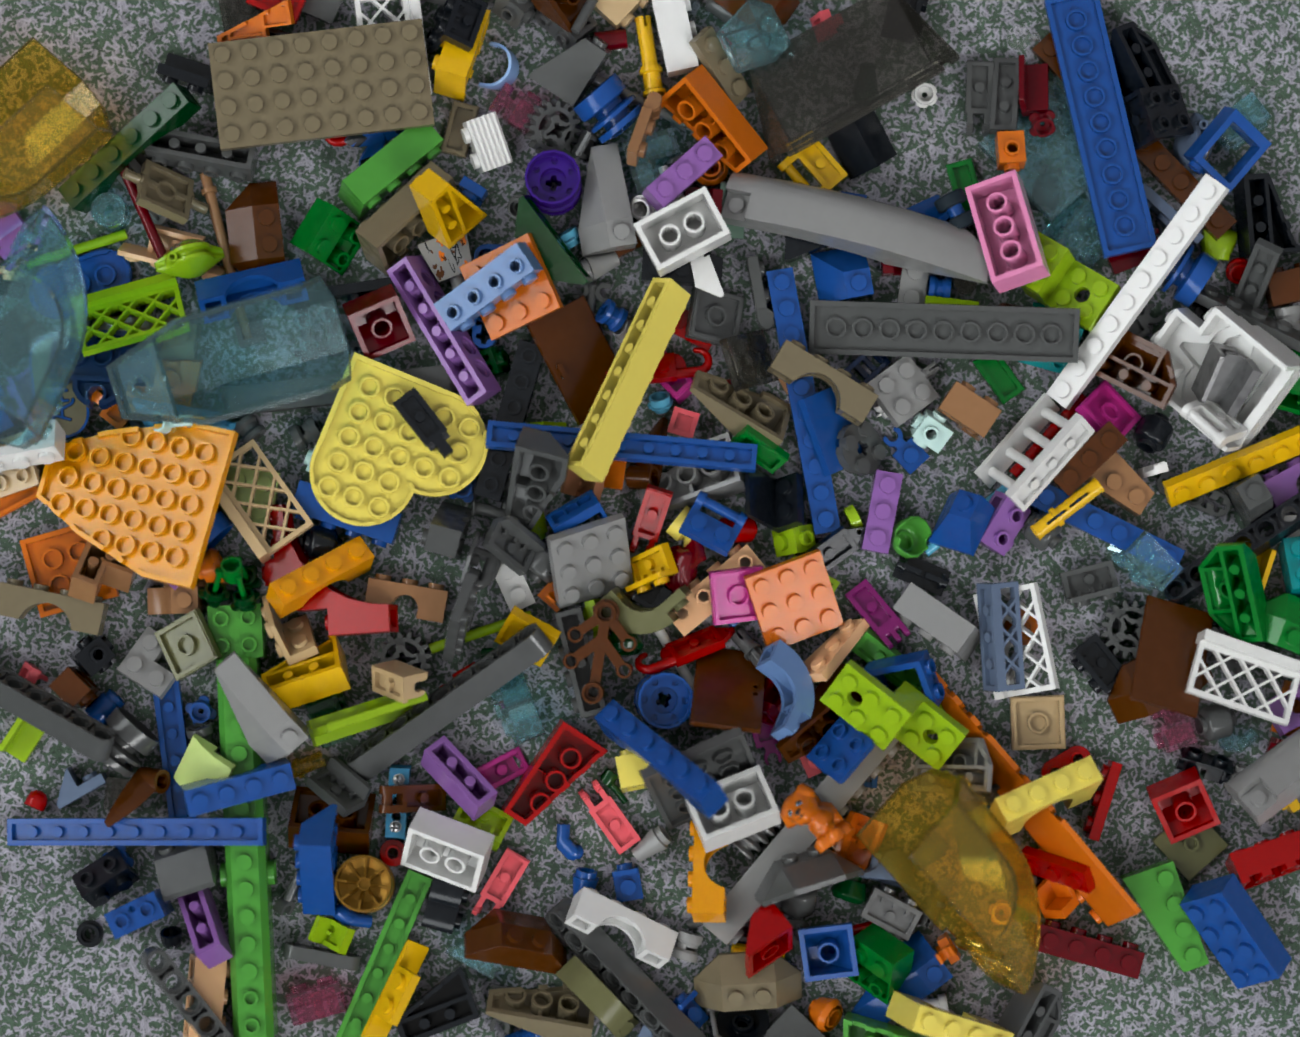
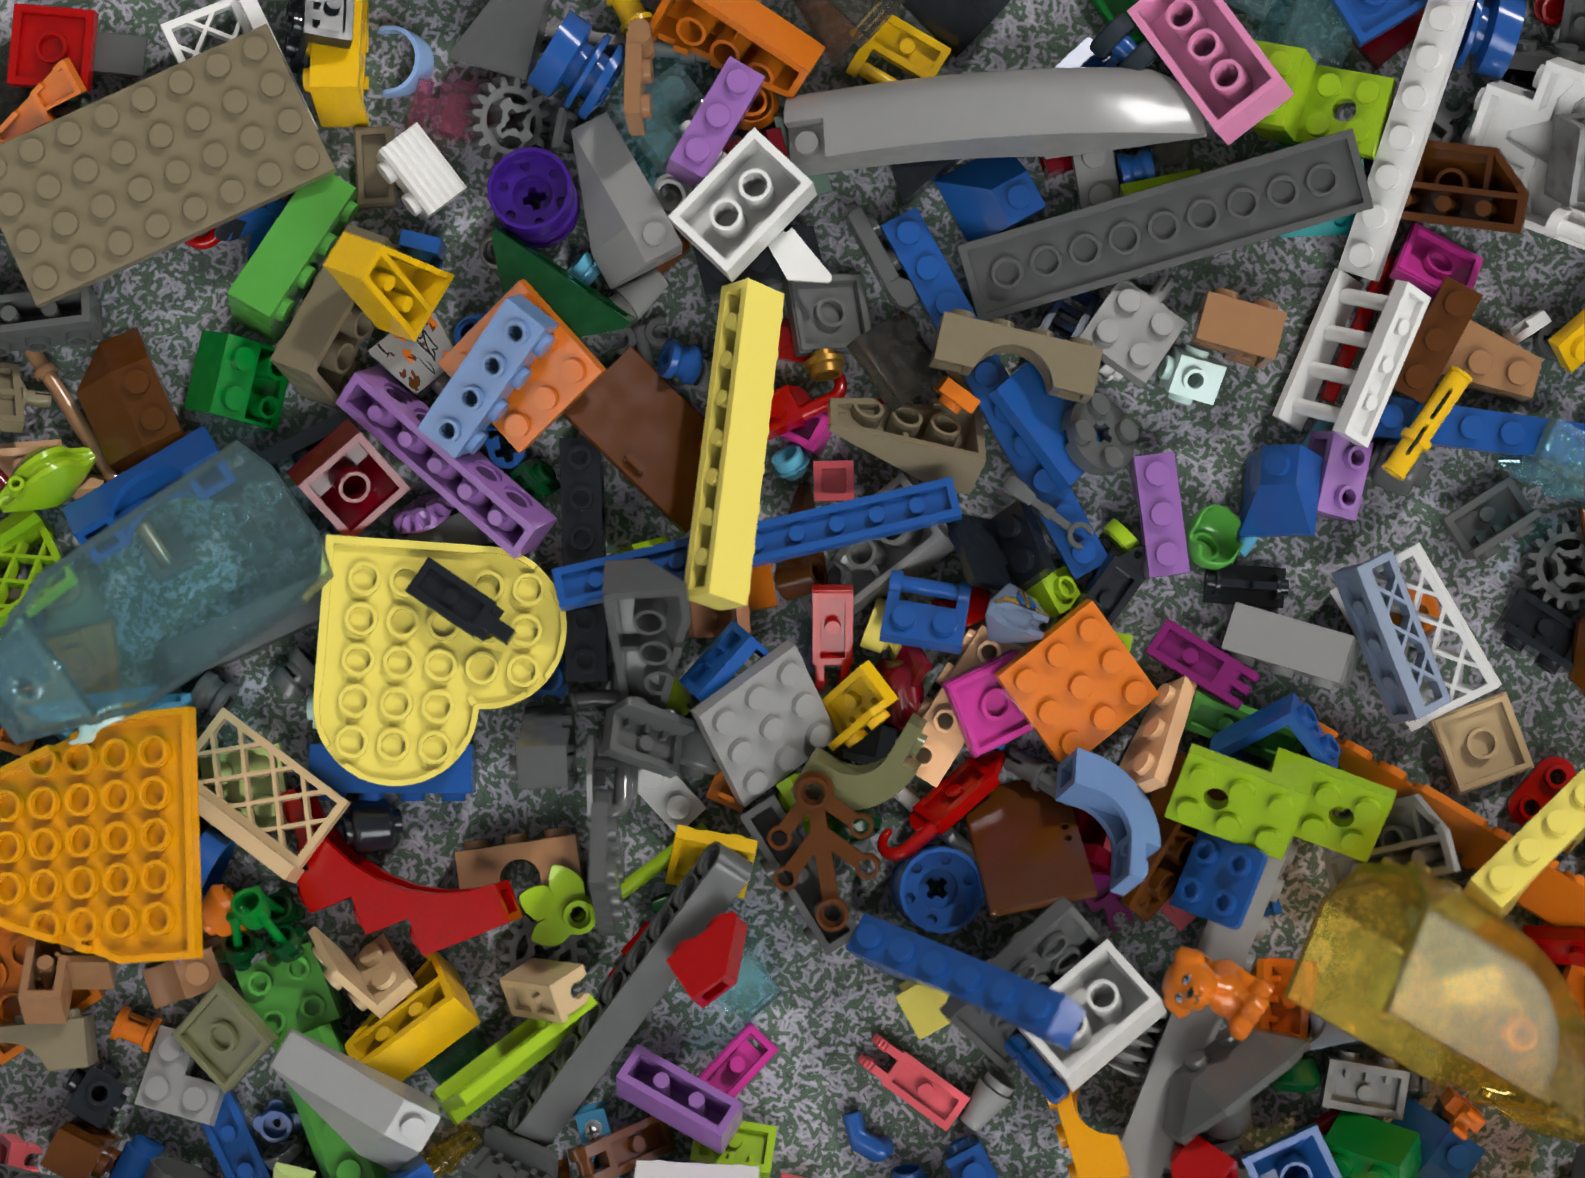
camera: 15 degrees left, 0 degrees up
(132, 623) = (135, 1028): none -> orange bush
(298, 586) = (356, 900): light orange arch -> none
(418, 358) = (422, 514): none -> medium lavender gear
(420, 630) = (553, 904): none -> lime plate
(508, 695) = (711, 960): none -> red slope
(555, 767) = (813, 1034): red wedge -> none
(608, 778) = (894, 1026): dark green hand -> none
(688, 831) = (1036, 1068): none -> blue axle
(701, 348) = (824, 365): none -> pearl gold plate
(767, 545) = (1014, 617): none -> sand blue hat
(768, 453) = (973, 485): green tile -> none
(777, 395) = (955, 396): none -> orange plate
(798, 468) = (1021, 492): none -> dark grey piece
(908, 453) = (1168, 420): blue plate -> none
(999, 378) = (1262, 270): green tile -> none
(1153, 432) = (1508, 275): black head -> none

